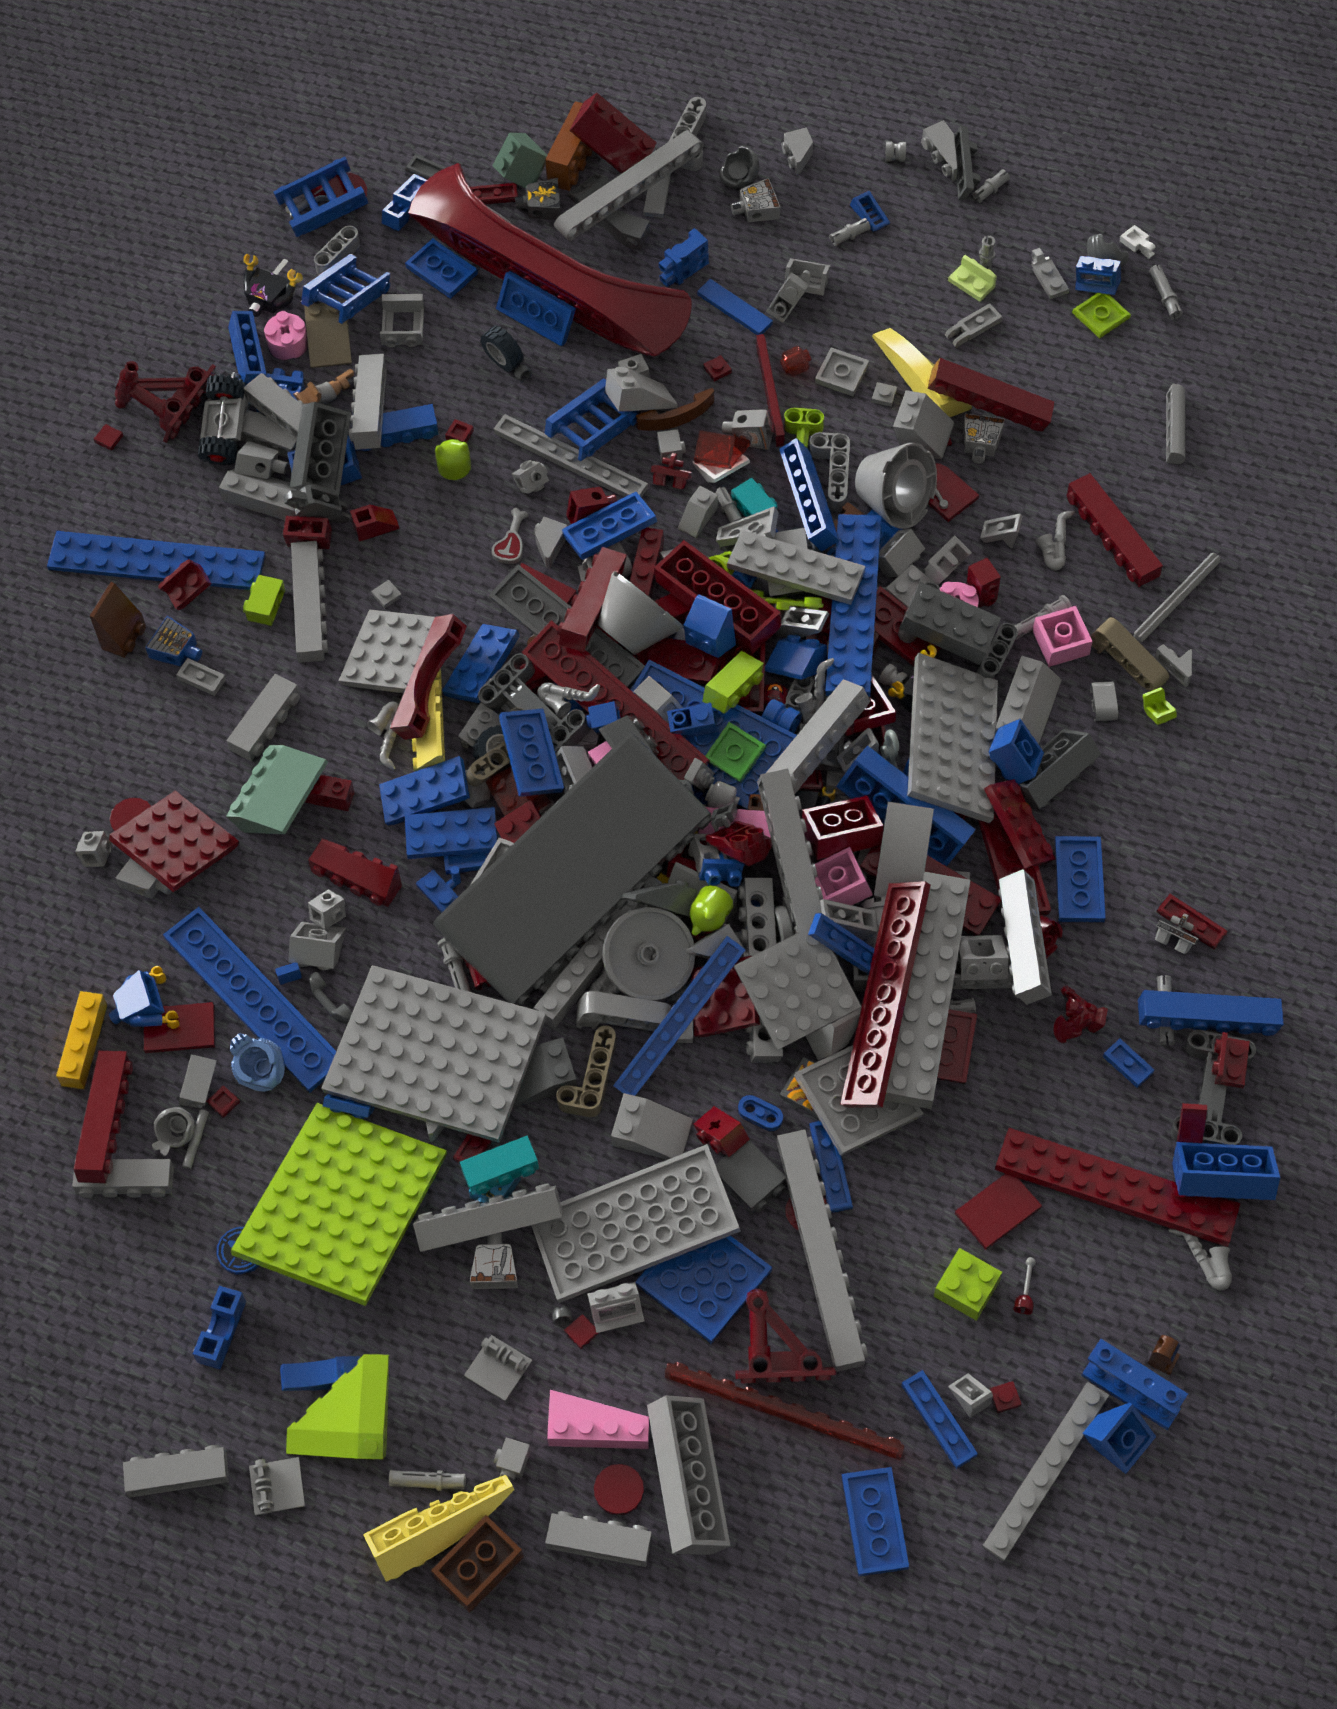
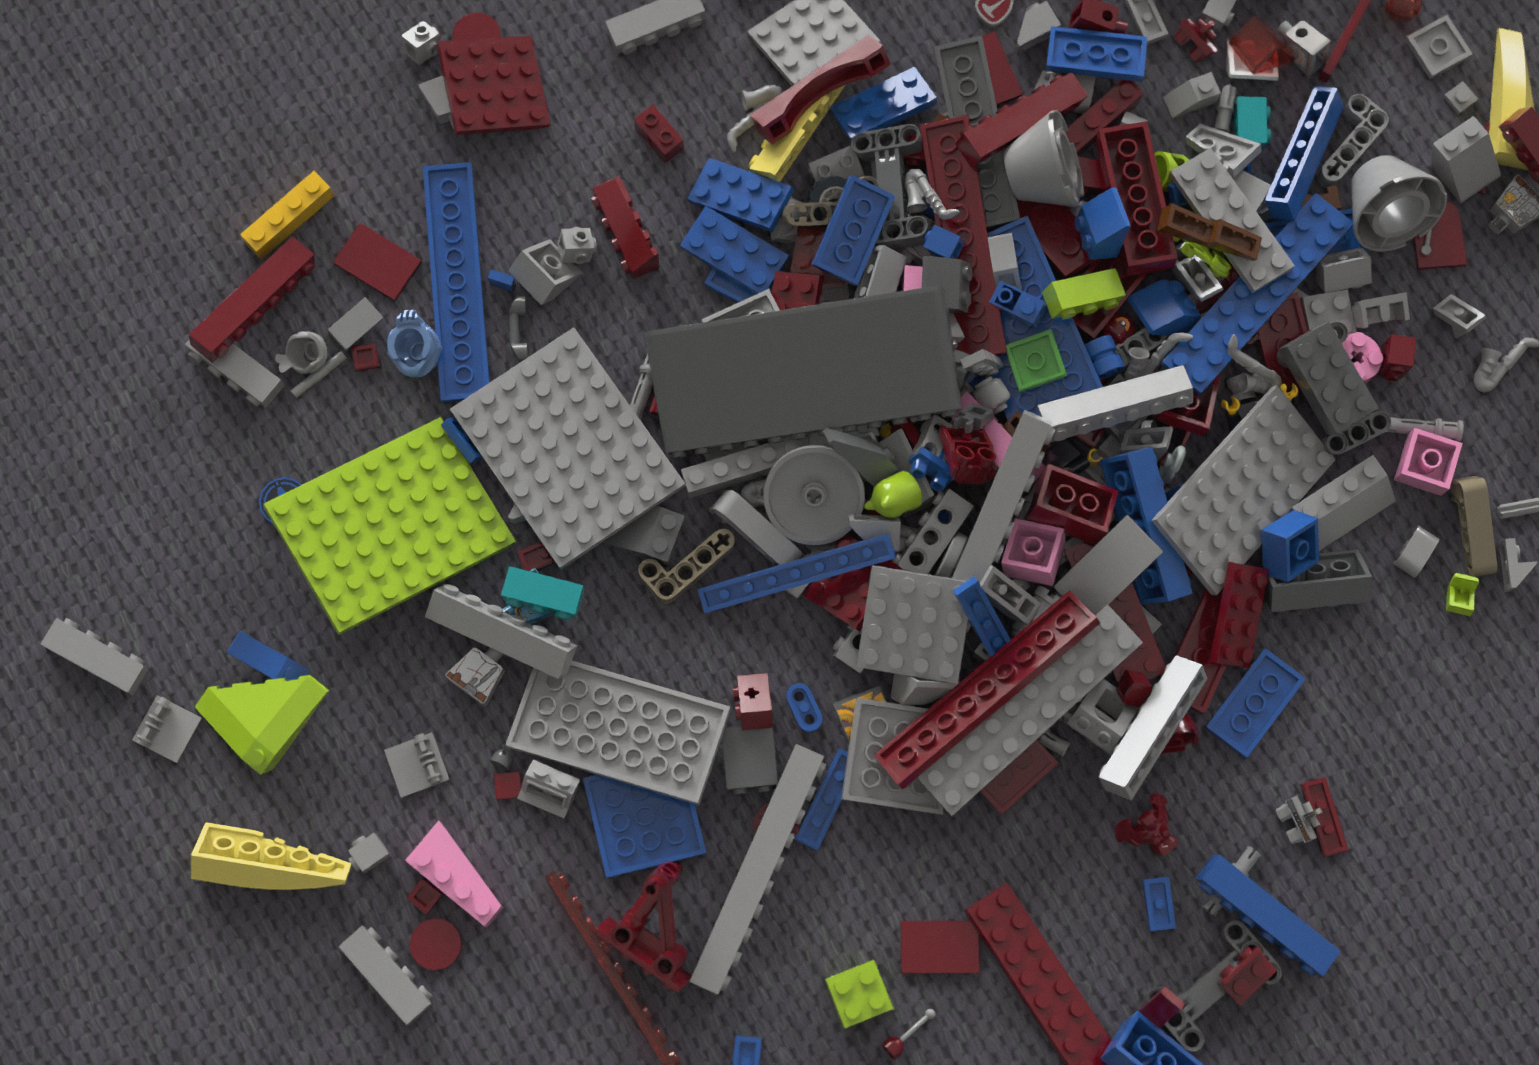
camera: 30 degrees right, 15 degrees up
(140, 1002) = (358, 215): blue torso -> none
(215, 1342) = (205, 568): blue arch -> none
(276, 790) = (612, 101): sand green slope -> none
(427, 1480) = (295, 823): light grey pin -> none
(437, 890) = (686, 298): blue plate -> none
(477, 1563) = (273, 920): reddish brown brick -> none
(582, 1458) = (425, 895): none -> dark red plate
(650, 1128) = (700, 652): light grey slope -> none
(688, 1475) = (495, 980): light grey brick -> none
(797, 578) = (1202, 231): none -> reddish brown slope
(806, 423) = (1357, 77): lime beam -> none
(903, 657) = (1261, 378): none -> light grey piece
(988, 924) = (1134, 688): none -> dark red plate

